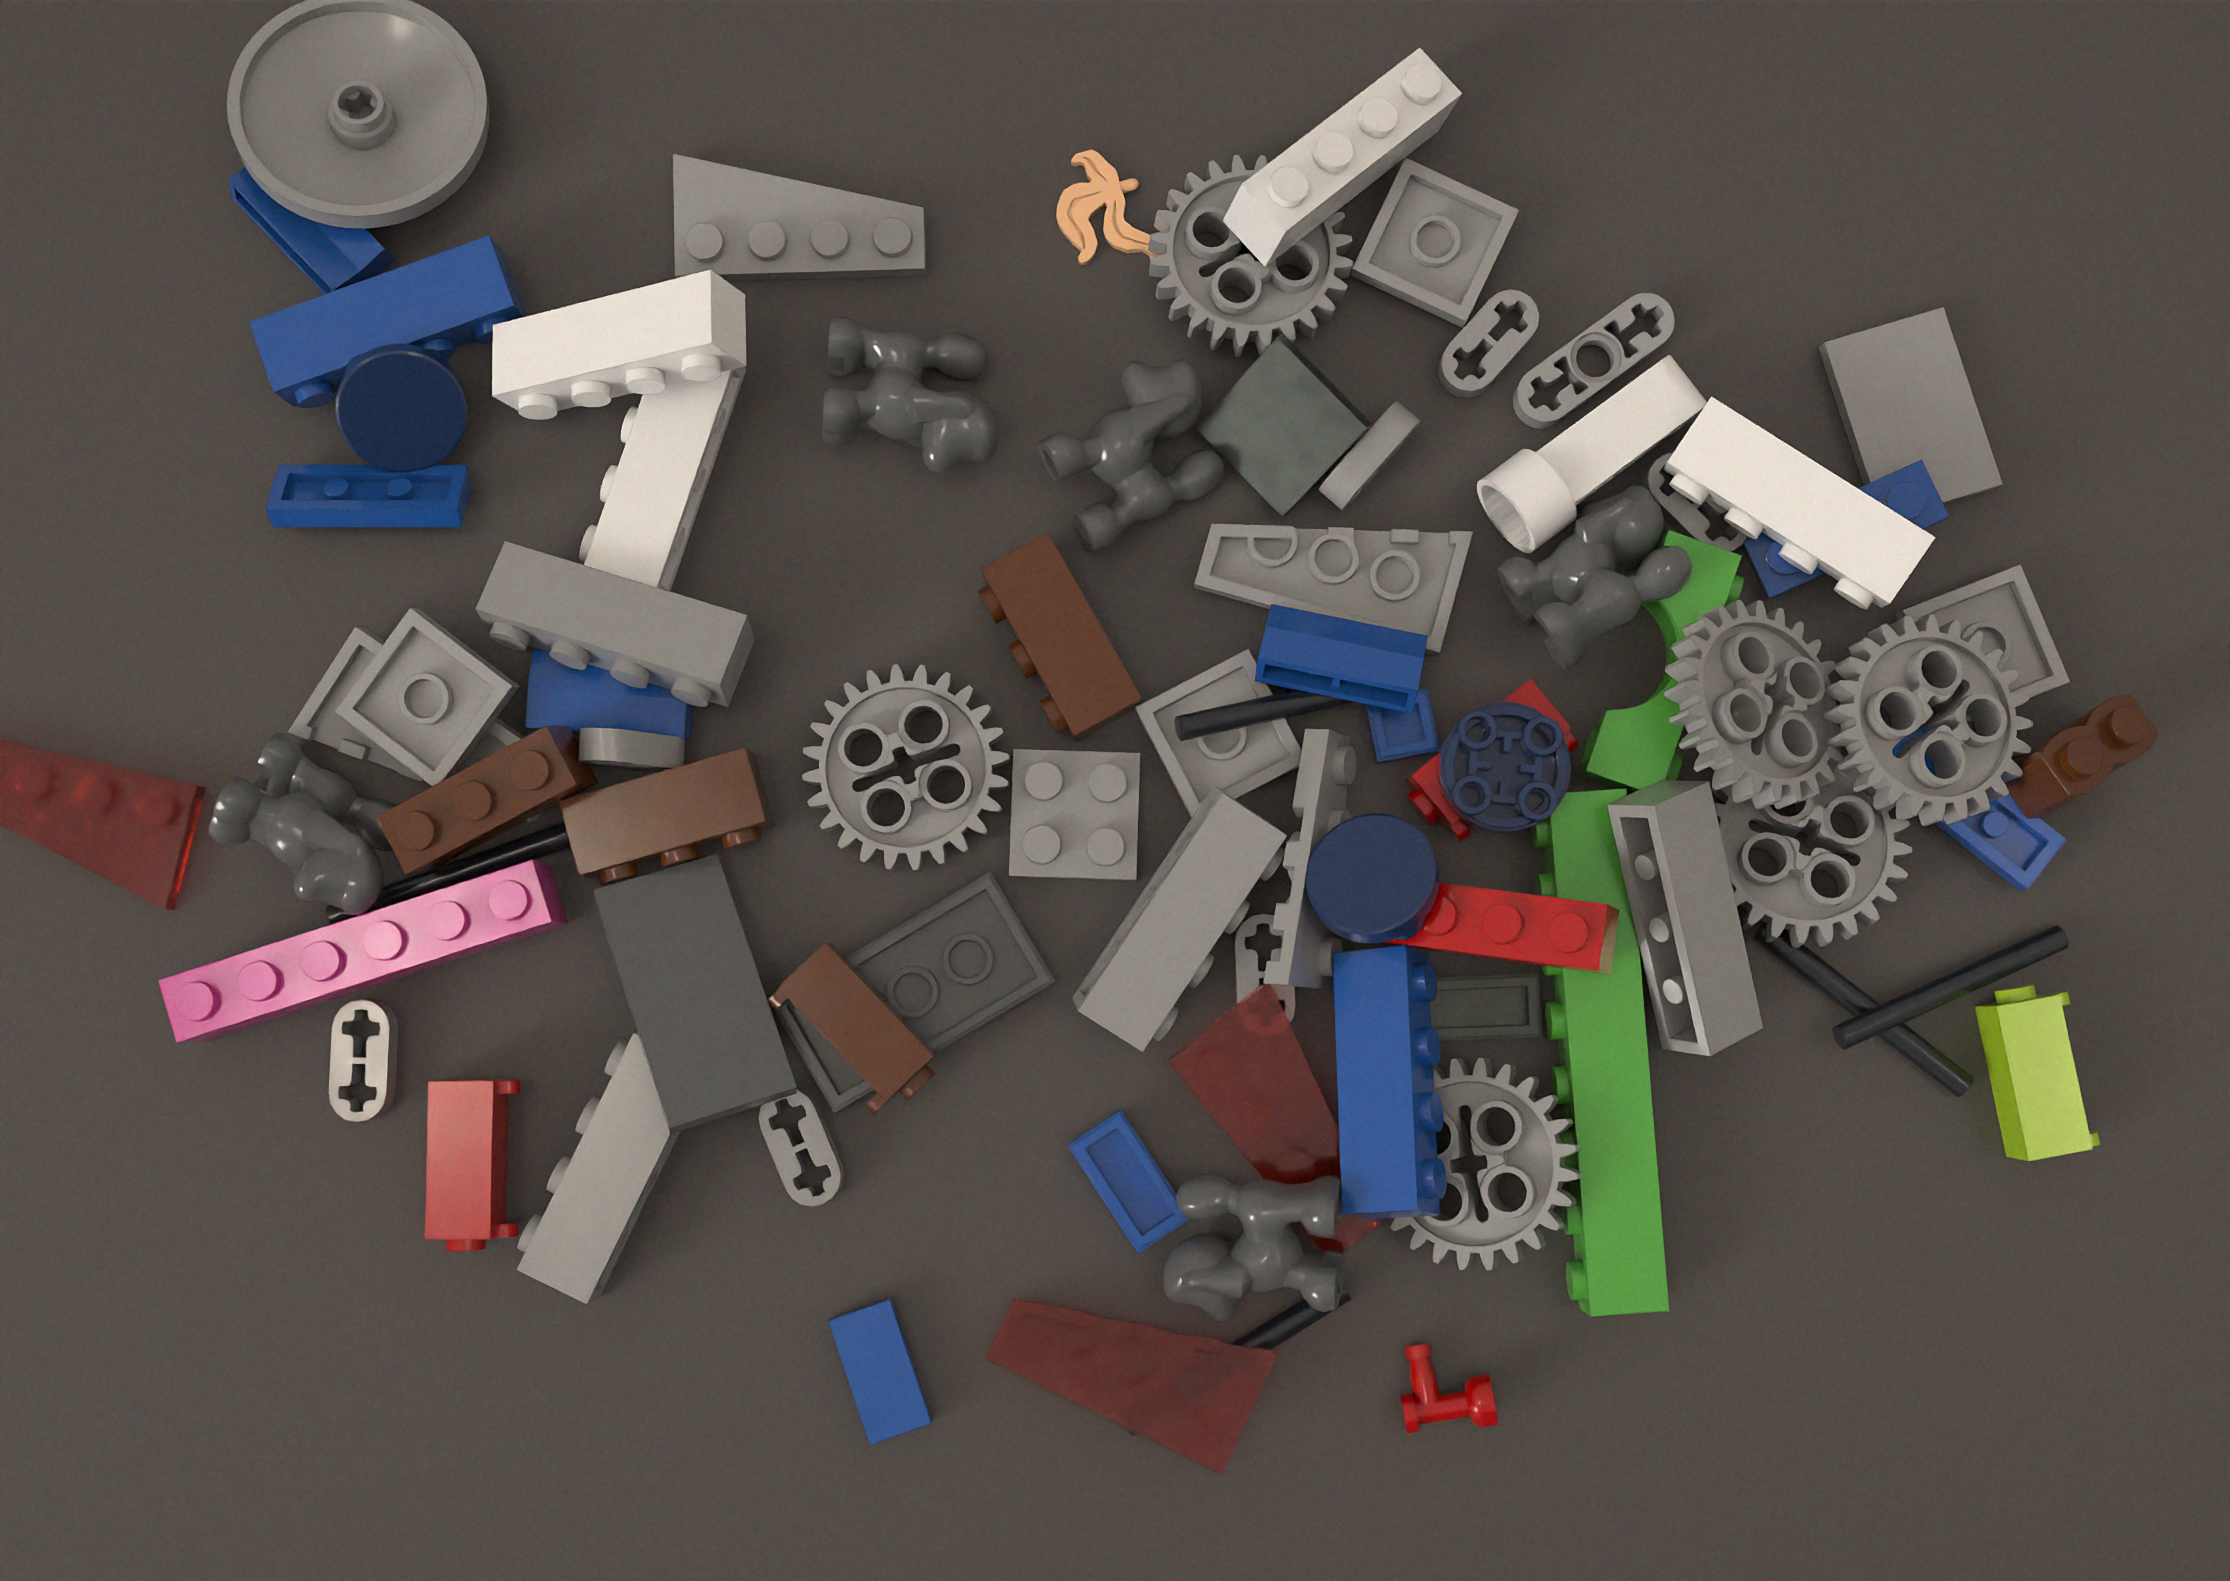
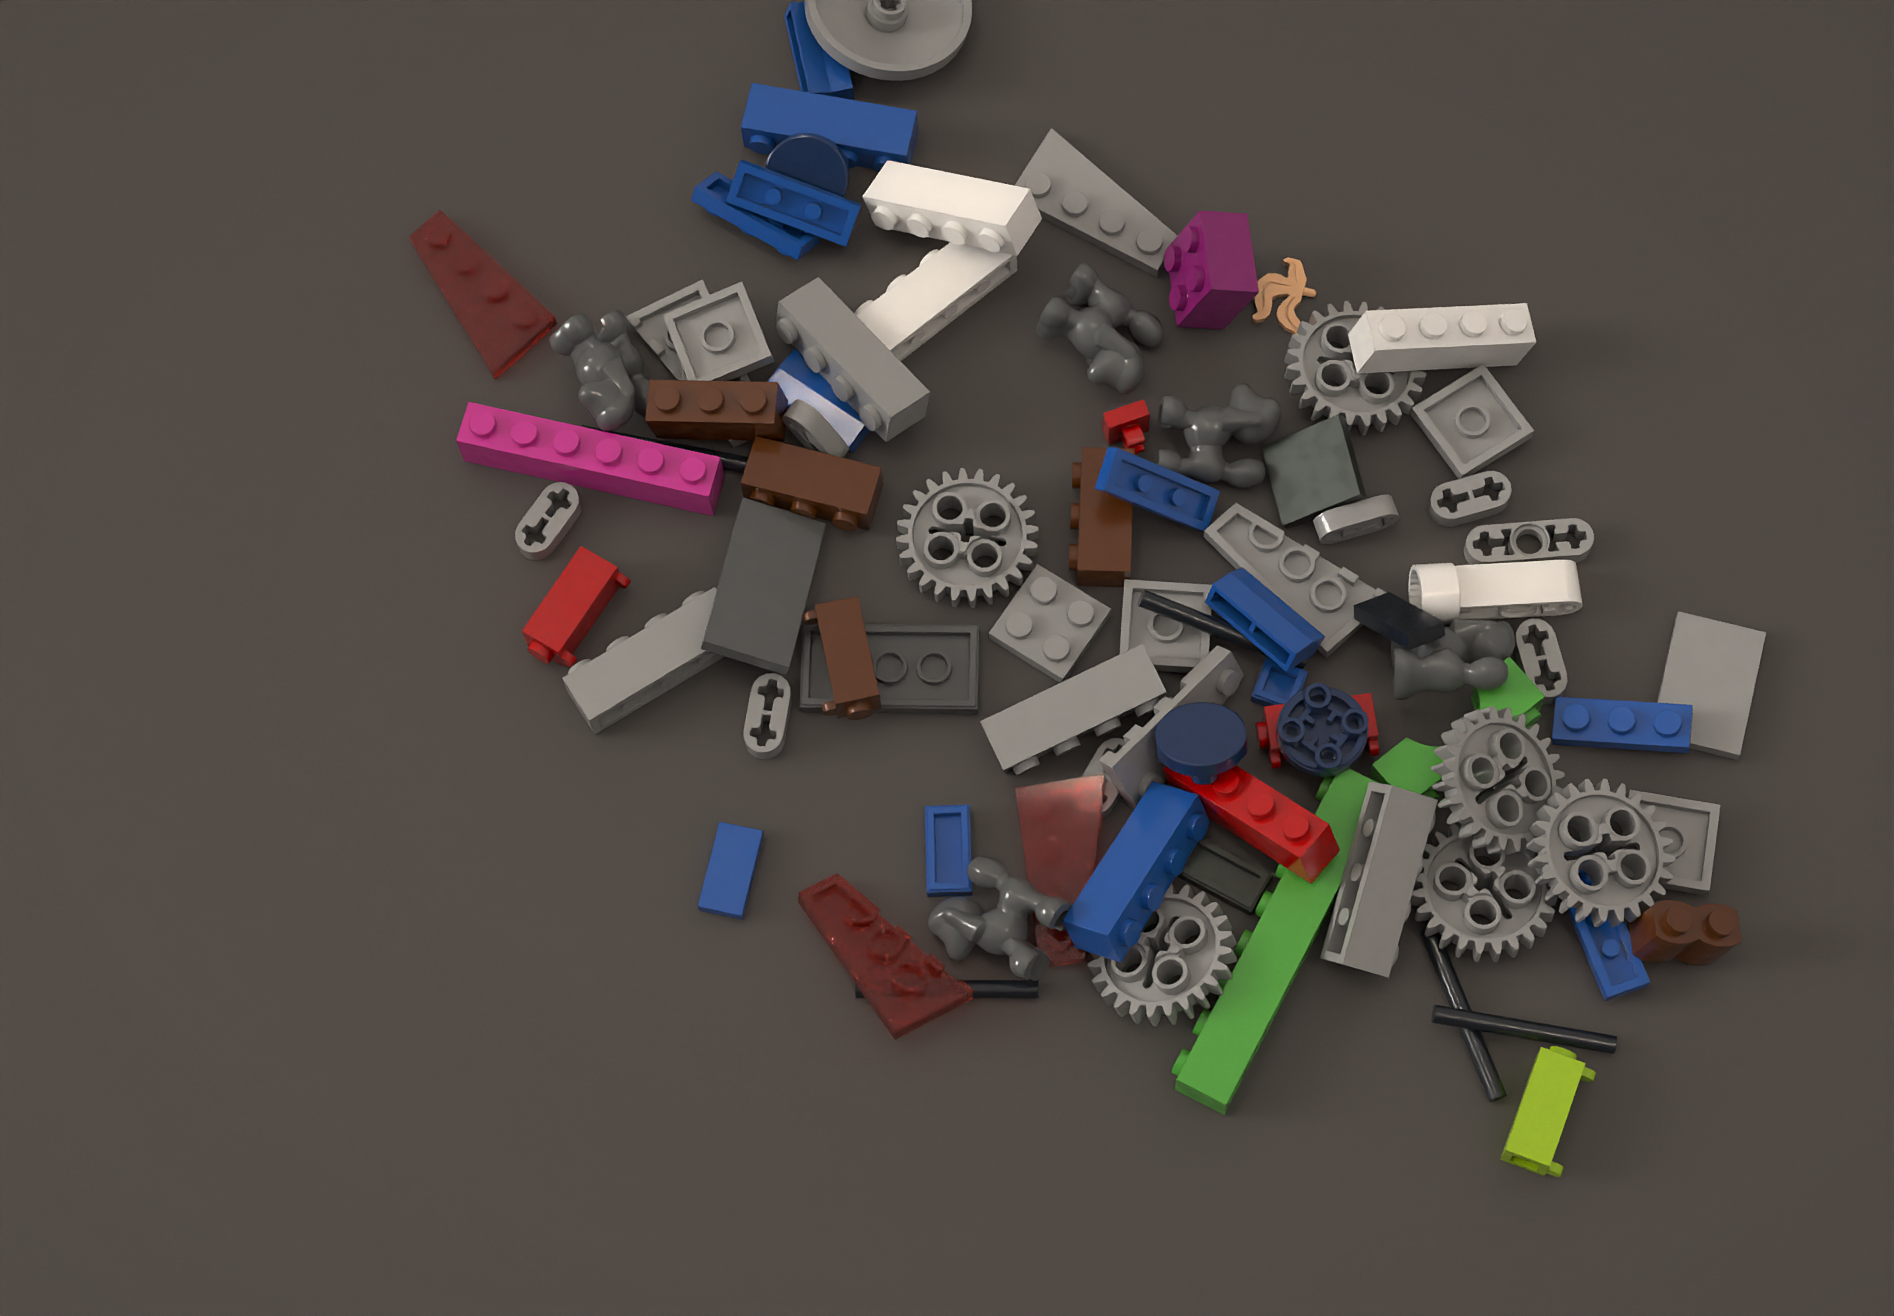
camera: 35 degrees right, 15 degrees down
(407, 456) = (793, 202): none -> blue plate
(1000, 233) = (1211, 270): none -> magenta brick
(1015, 500) = (1127, 425): none -> red tile
(1109, 572) = (1157, 489): none -> blue plate
(1426, 1404) = (1044, 1085): red piece -> none
(1515, 567) = (1399, 620): none -> black tile
(1798, 505) = (1595, 682): white brick -> none

